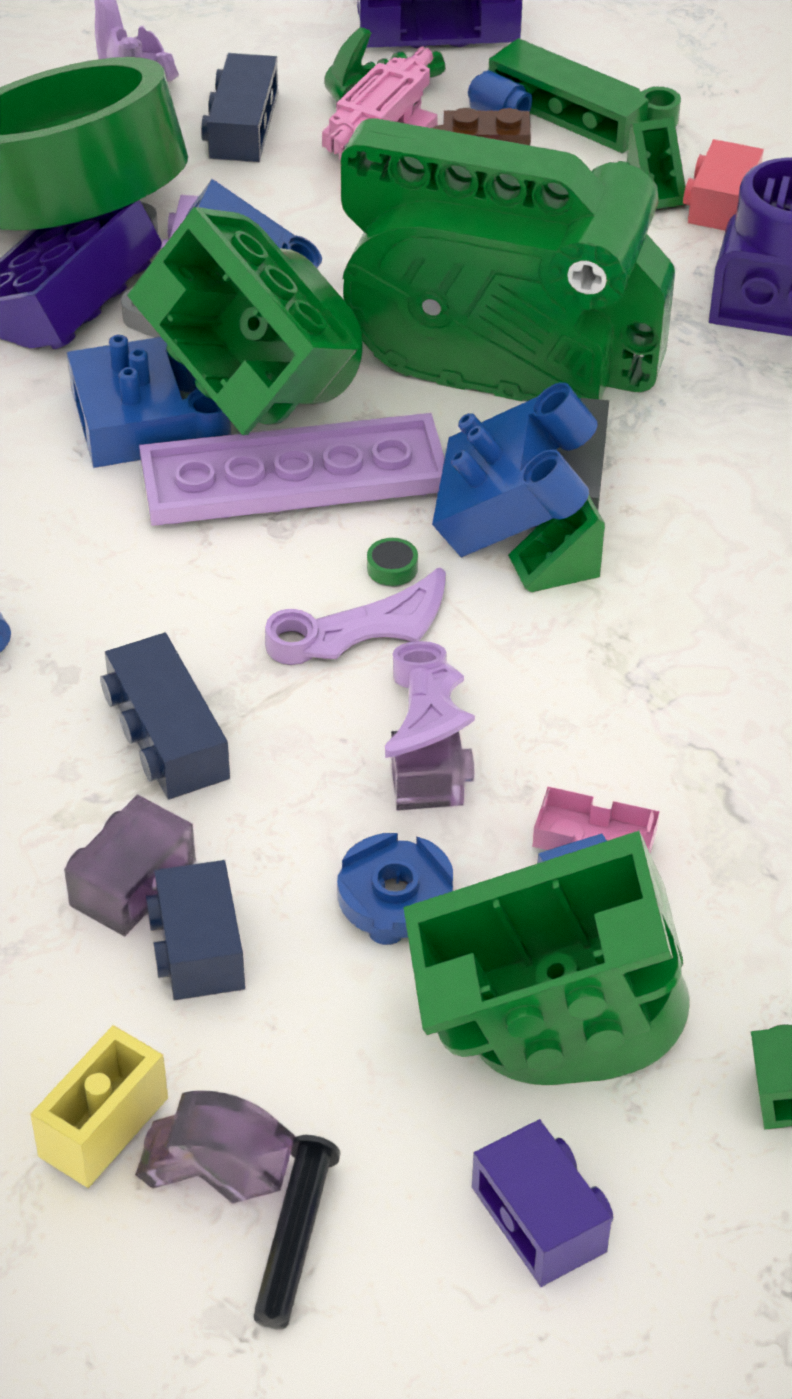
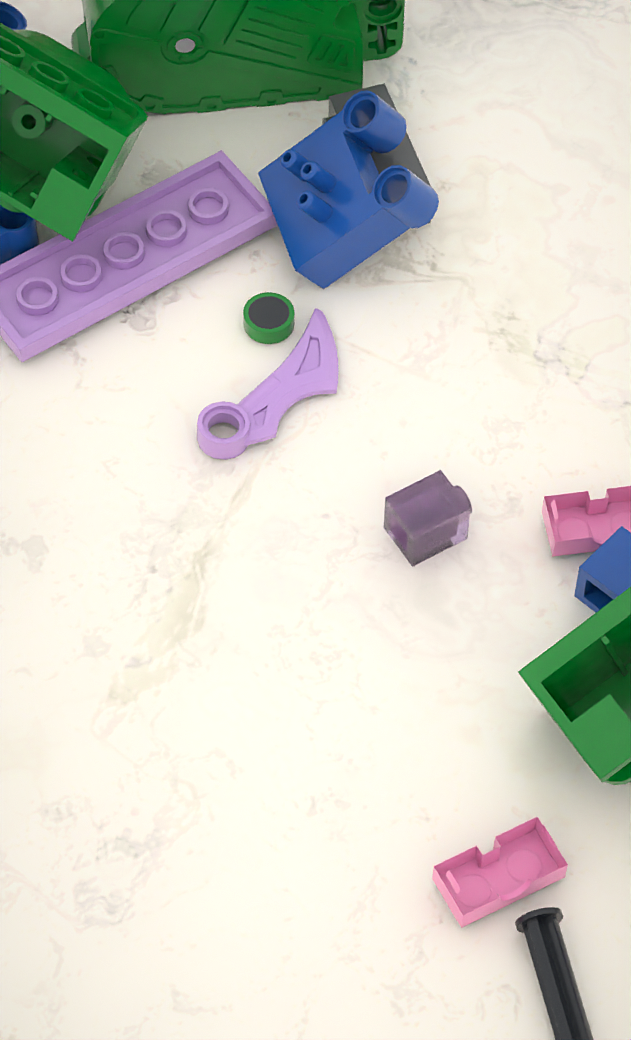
camera: 25 degrees left, 10 degrees up
(100, 1106) = (343, 961): light yellow brick -> none
(118, 866) = (219, 718): clear purple brick -> none
(165, 716) = (162, 556): dark blue brick -> none
(198, 929) = (319, 757): dark blue brick -> none
(222, 1141) = (460, 948): clear purple brick -> none
(308, 1098) = (516, 867): none -> bright pink piece
(381, 858) = (458, 672): blue plate -> none
(430, 712) = (414, 470): lavender piece -> none
(561, 550) = (419, 255): green slope -> none

